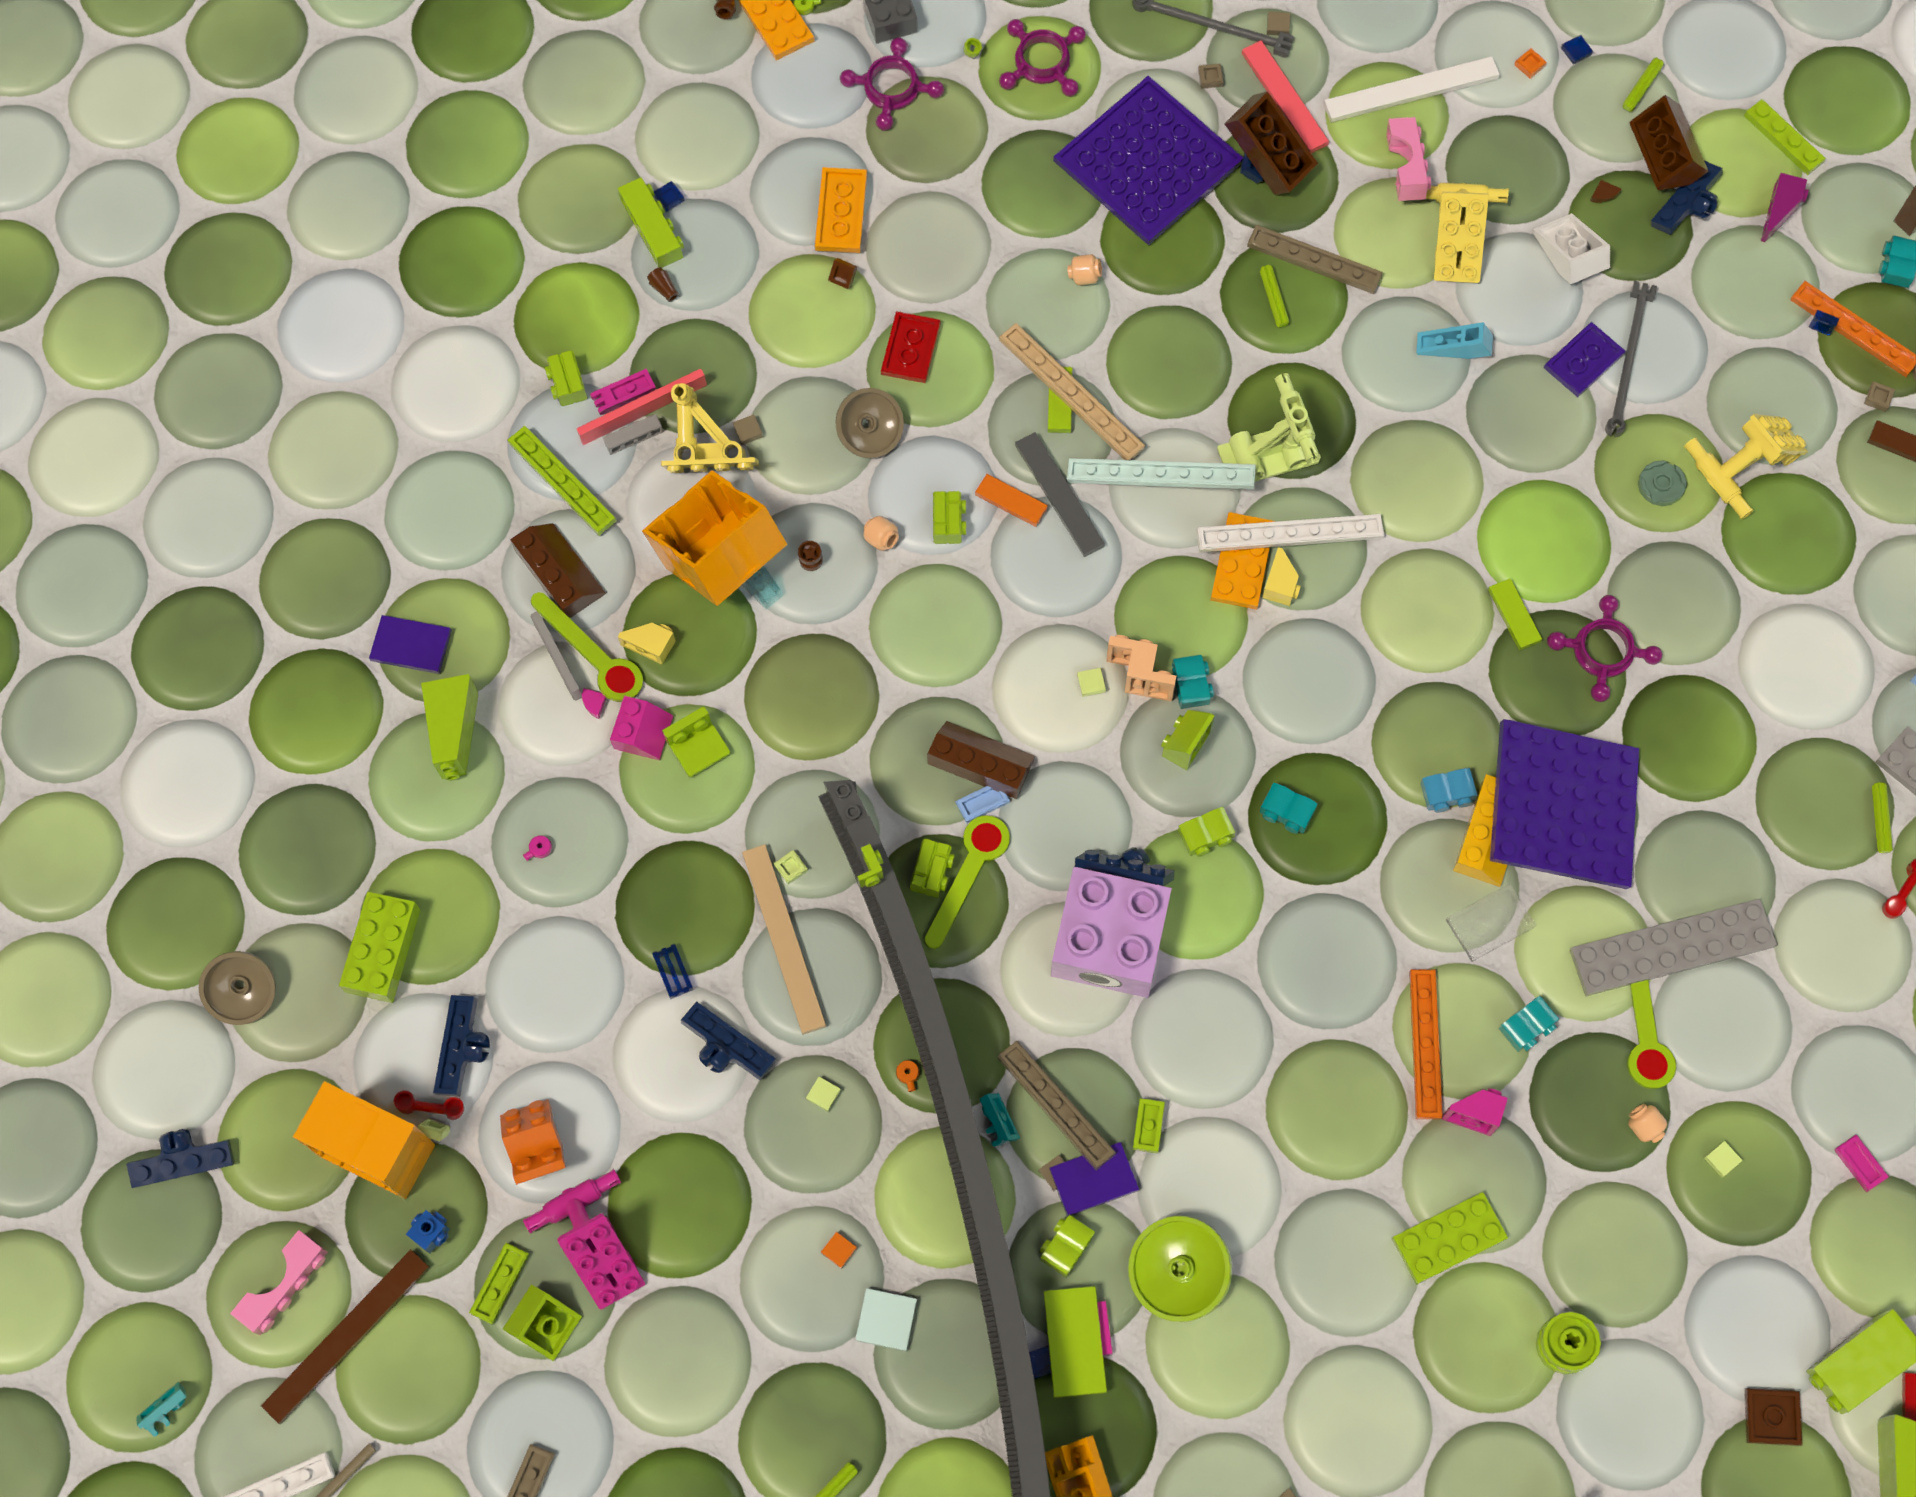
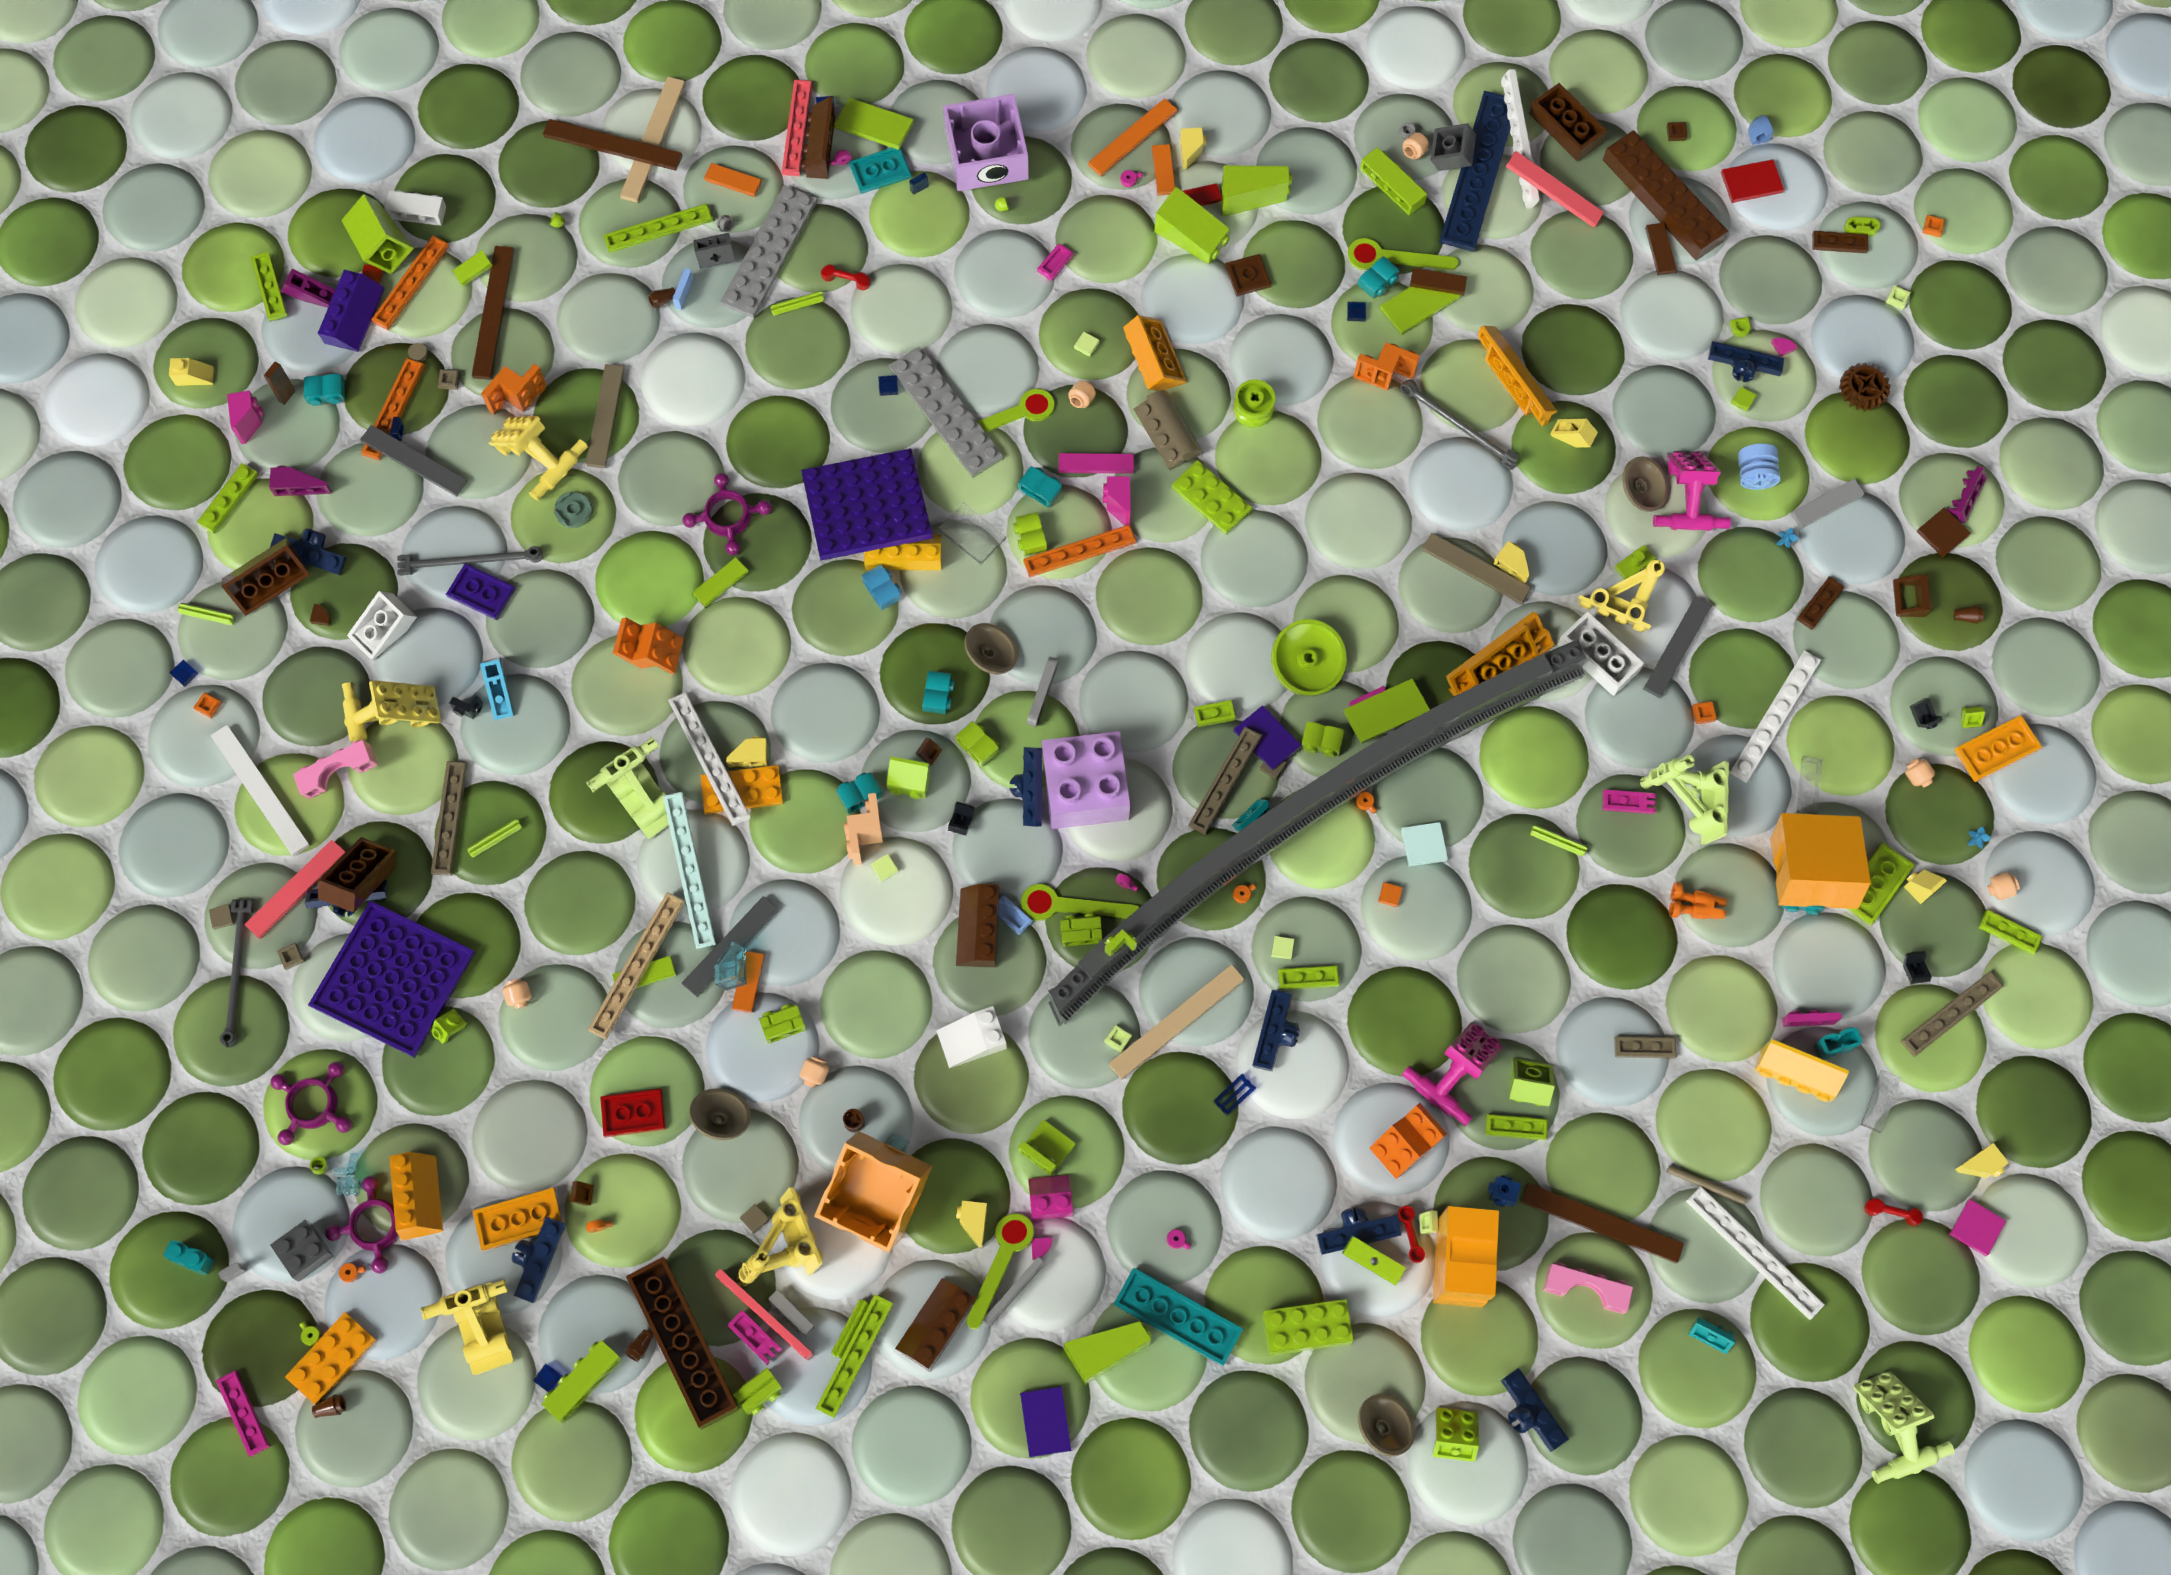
camera: 115 degrees left, 0 degrees up
(198, 1065) = (1456, 1434): none -> lime bracket
(417, 1048) = (1383, 1267): none -> lime tile
(454, 816) = (1178, 1317): none -> teal plate
(592, 485) = (850, 1328): none -> lime axle
(646, 320) = (682, 1343): none -> reddish brown brick
(751, 144) = (480, 1324): none -> light yellow plate
(775, 1110) = (1308, 977): none -> lime tile
(792, 214) = (537, 1258): none -> dark blue plate
(803, 280) = (597, 1225): none -> orange piece
(852, 52) = (354, 1272): none -> orange piece
(853, 710) = (972, 1037): none -> white slope
(902, 120) = (416, 1195): none -> light orange slope
(939, 68) = (350, 1183): none -> clear light blue arm
(962, 1270) = (1366, 805): none -> orange piece
(971, 941) = (1126, 882): none -> dark pink piece
(1031, 483) = (731, 967): none -> clear light blue slope
(1076, 198) = (447, 1025): none -> lime bracket
(1117, 782) = (961, 818): none -> black bracket
(1216, 774) = (929, 751): none -> reddish brown plate
(1248, 930) = (1042, 692): none -> light grey beam
(1328, 899) = (991, 648): none -> dark tan dish
(1439, 303) = (462, 708): none -> black bracket
(1453, 507) = (648, 645): none -> orange bracket
(1466, 989) = (1030, 533): none -> lime brick
(1543, 1108) = (1096, 463): none -> dark pink tile
(1564, 1216) = (1167, 429): none -> dark tan brick
(1682, 1241) = (1154, 353): none -> light orange slope
(1730, 889) = (888, 385): none -> clear blue tile
(1776, 330) = (413, 460): none -> dark grey tile
(1780, 551) = (605, 416): none -> dark tan tile
(1842, 452) = (514, 389): none -> orange bracket
(1884, 167) = (244, 414): none -> dark pink slope

